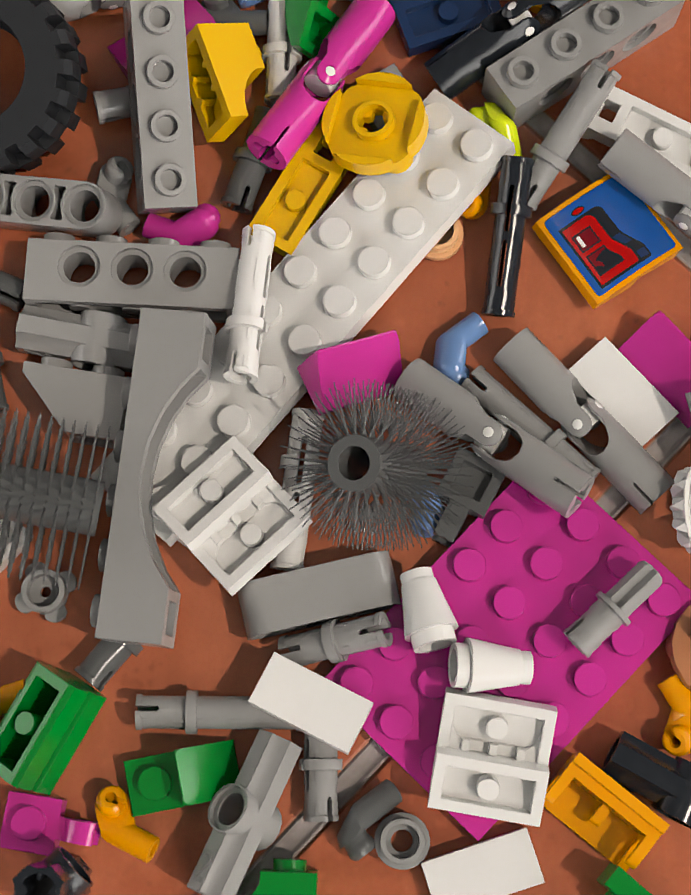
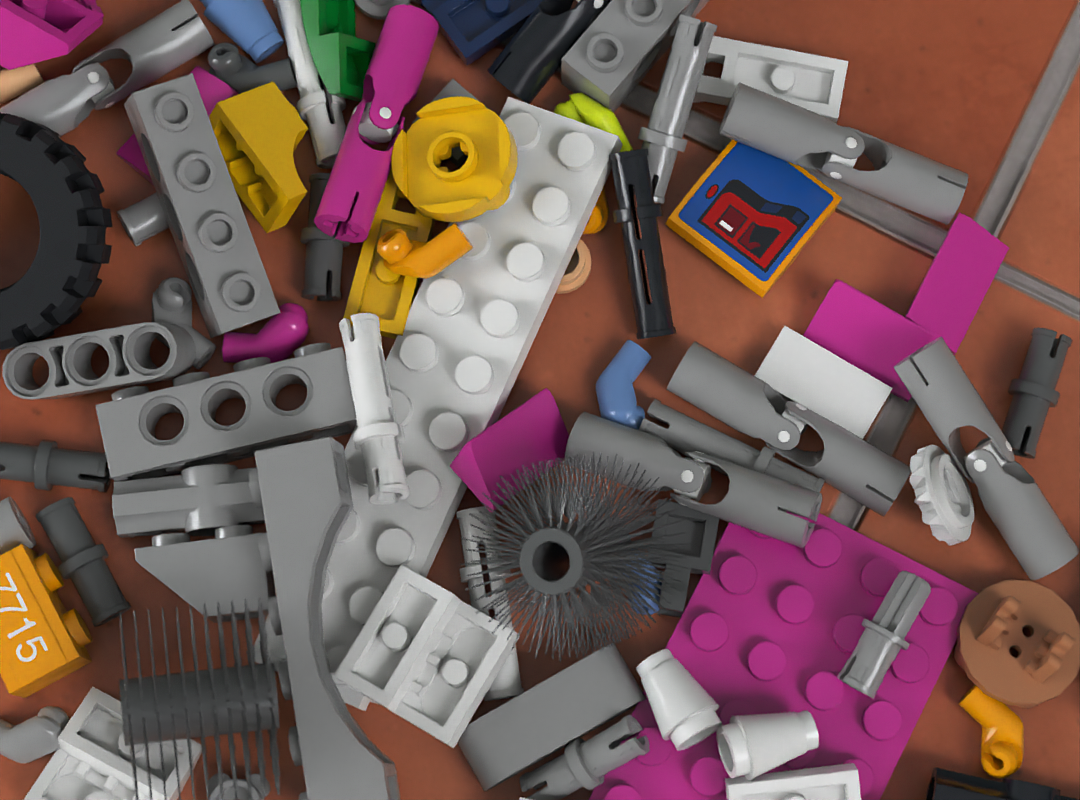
camera: 15 degrees left, 0 degrees up
(326, 196) = (422, 258): none -> light orange arm

